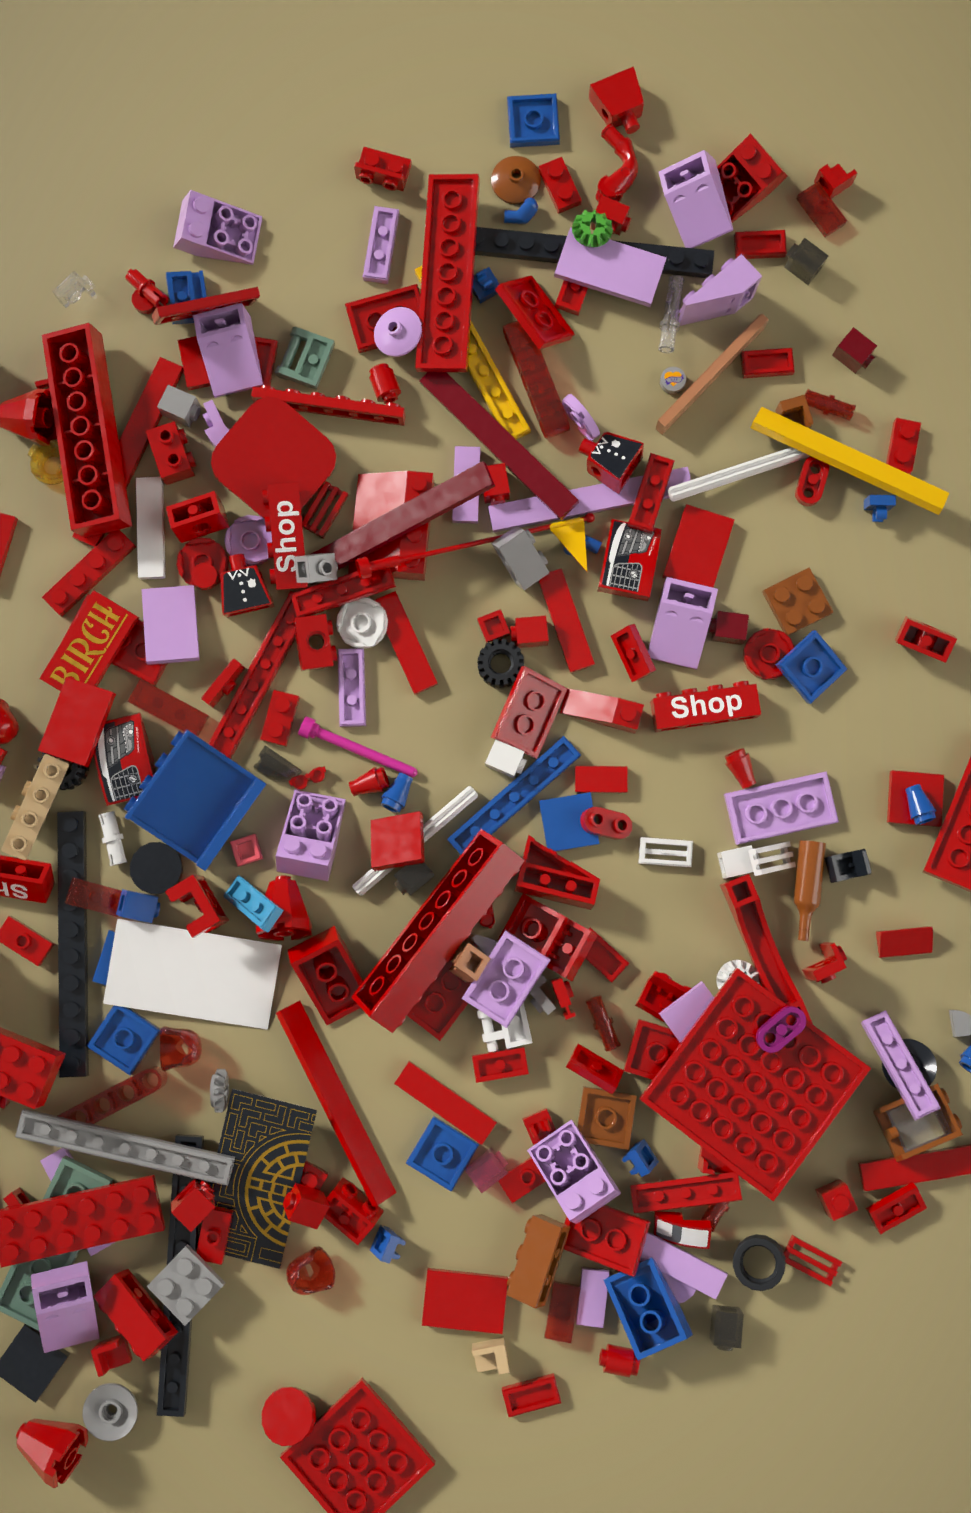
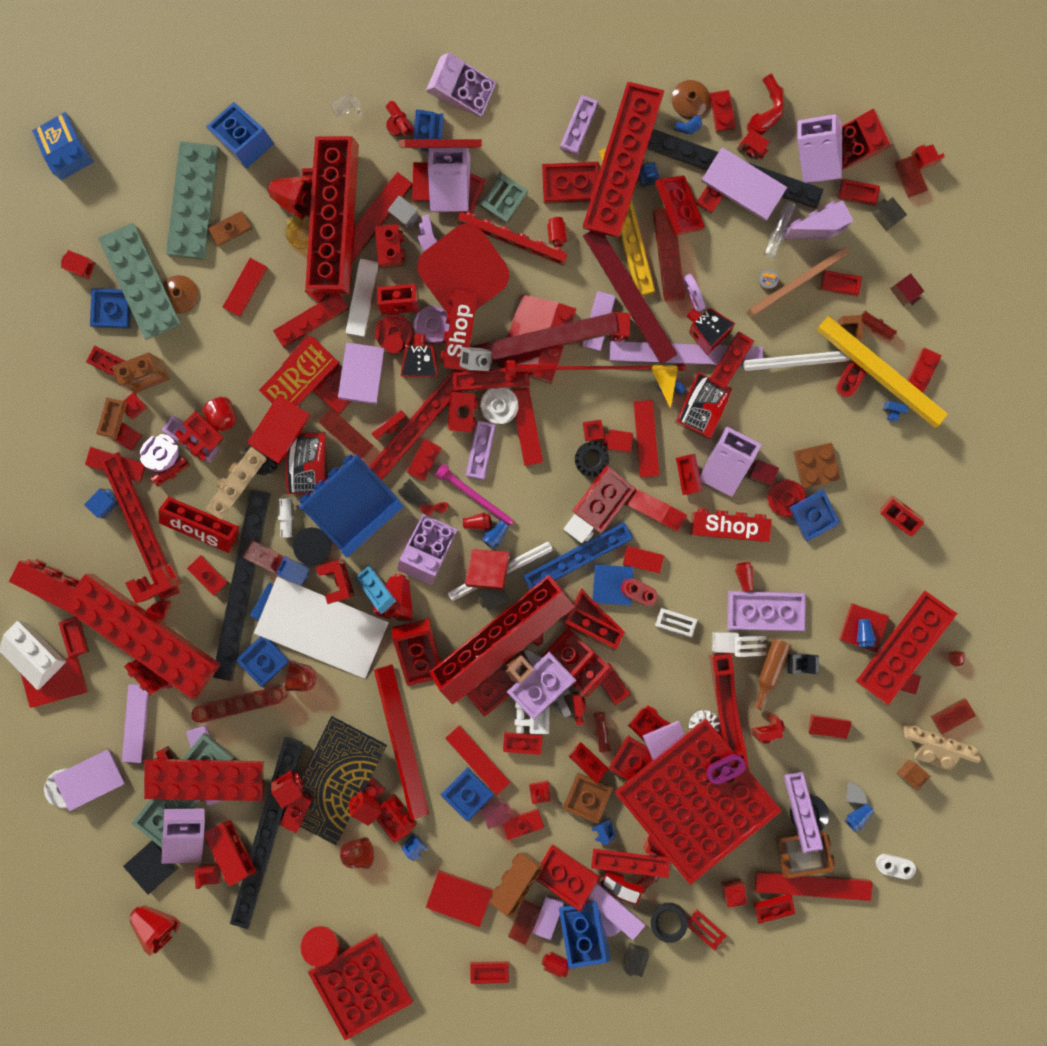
camera: 15 degrees right, 5 degrees up
(101, 1421) = (192, 920): light grey dish -> none
(125, 1147) = (248, 737): light grey tile -> none
(186, 1284) = (269, 841): light grey plate -> none
(219, 1090) = (322, 714): light grey gear -> none
(246, 850) = (378, 549): coral tile -> none
(316, 504) = (501, 303): red tile -> none
(383, 169) = (594, 67): red bracket -> none
(406, 335) = (581, 201): lavender dish -> none
(491, 1355) = (468, 939): tan panel -> none
(521, 557) = (625, 386): light grey brick -> none
(533, 120) = (714, 56): blue tile -> none
(573, 1172) = (556, 830): lavender slope -> none
(582, 232) = (730, 154): bright green gear -> none
(618, 99) = (782, 56): red torso -> none
(698, 546) = (755, 408): red tile -> none

